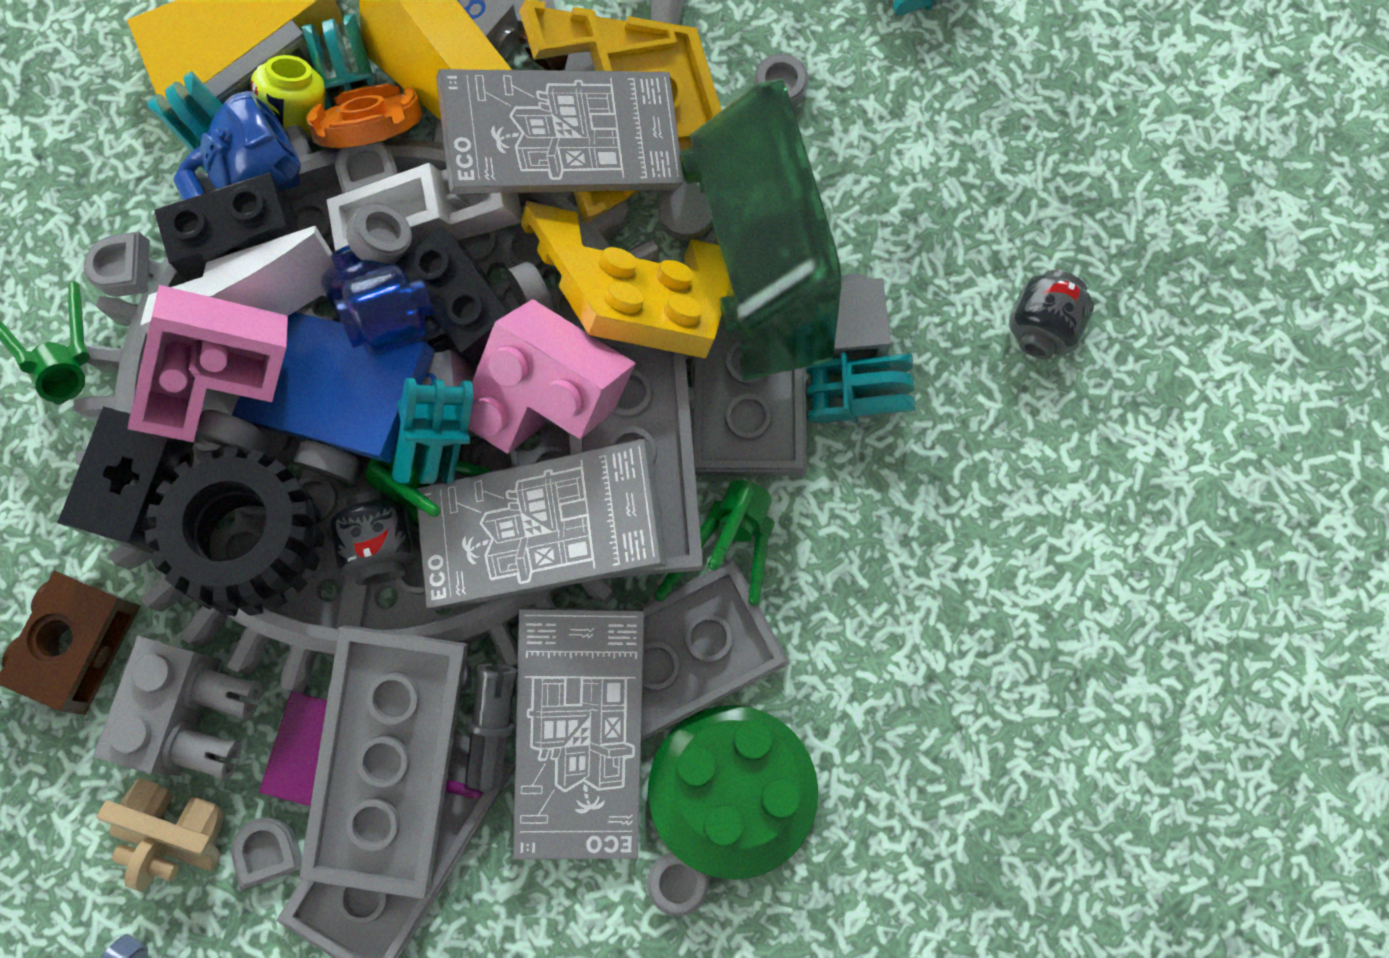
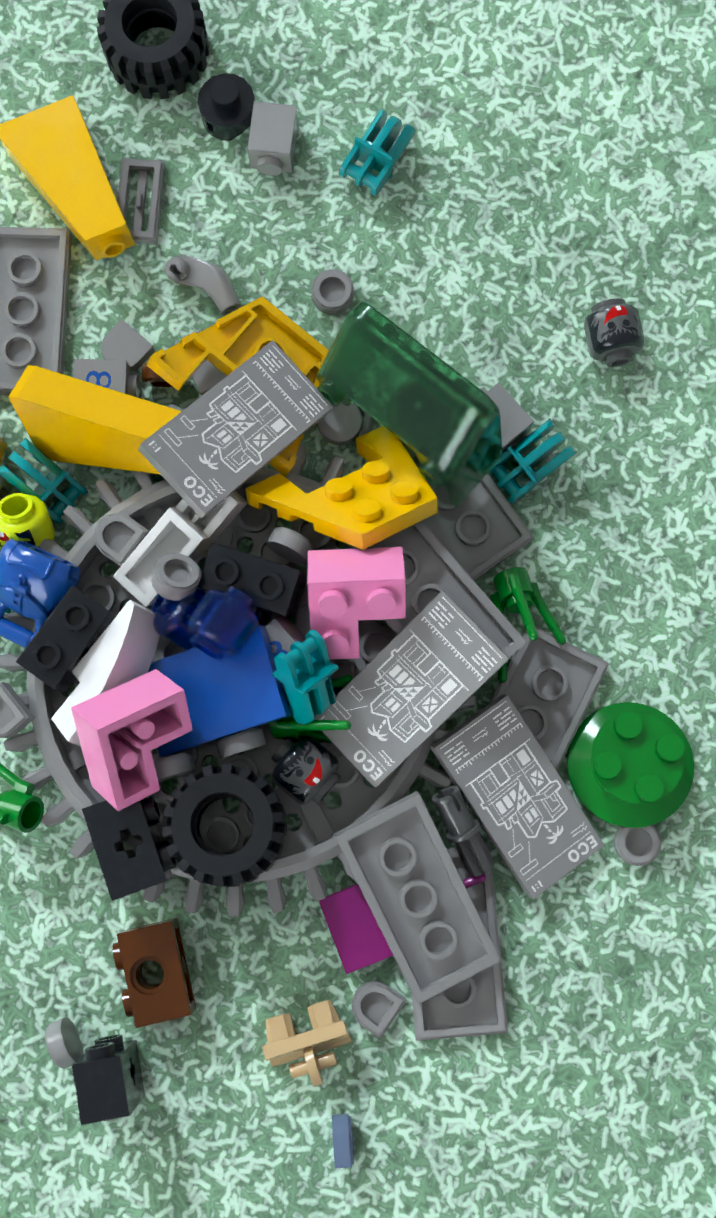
camera: 35 degrees left, 5 degrees up
(160, 709) = (246, 968): light grey brick -> none
(364, 116) = (93, 503): orange tile -> none

